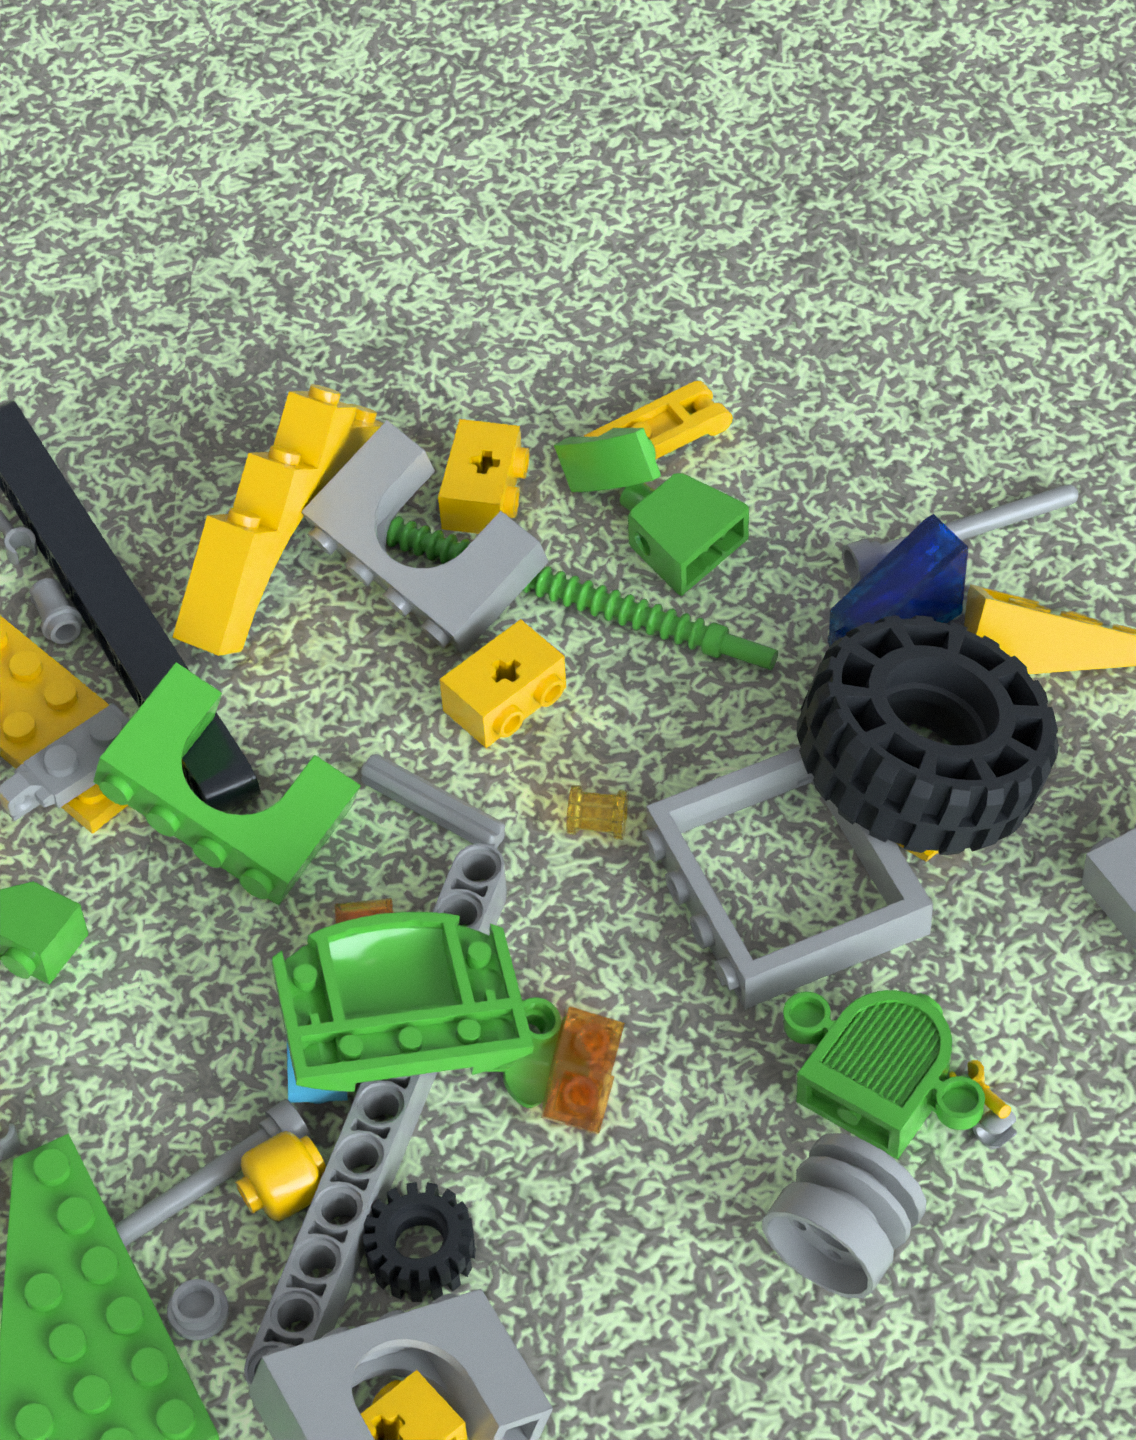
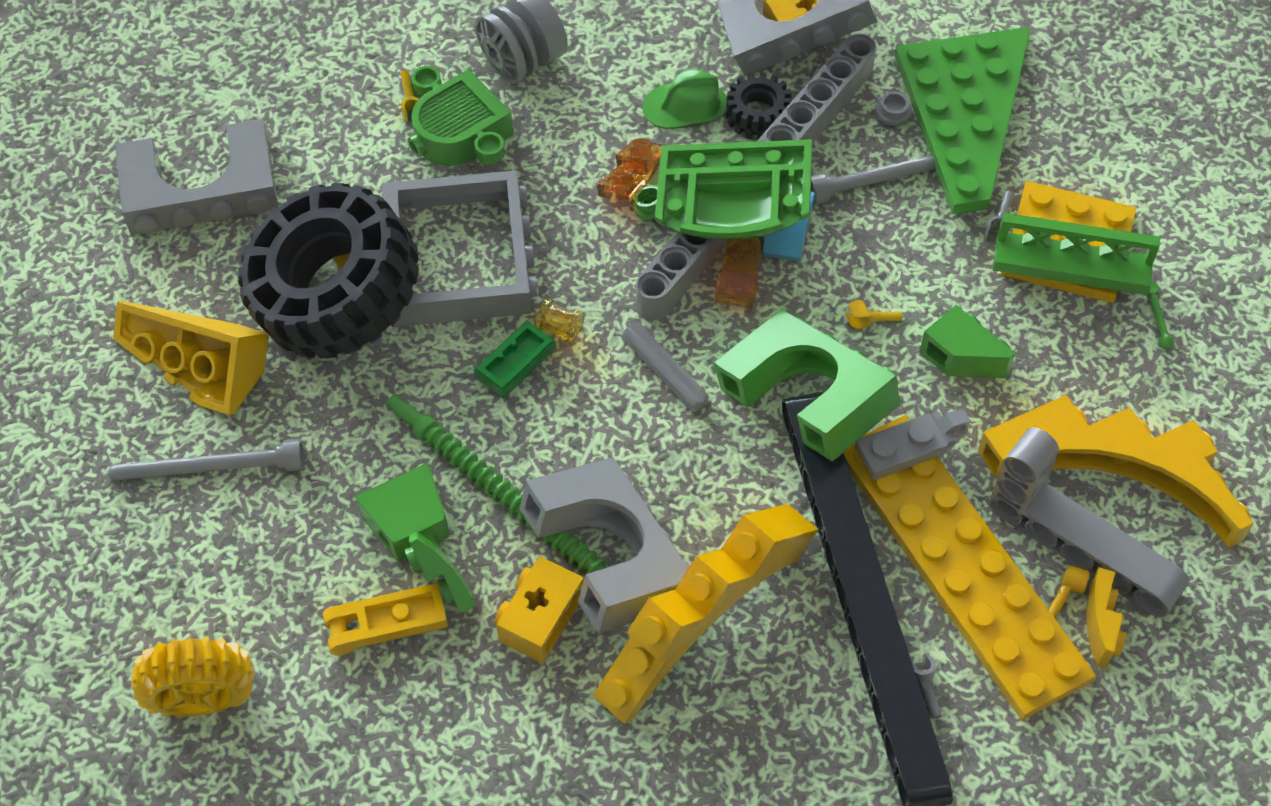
camera: 165 degrees left, 5 degrees up
(59, 620) = (903, 595): light grey pin -> none
(175, 944) = (861, 317): none -> yellow hand
(281, 1175) = (832, 150): yellow head -> none
(503, 683) = (587, 428): yellow brick -> none
(543, 1234) = (687, 101): none -> bright green piece
(637, 750) = (515, 359): none -> green plate
(827, 291) = (192, 677): none -> yellow gear
(916, 578) = (287, 396): clear blue slope -> none

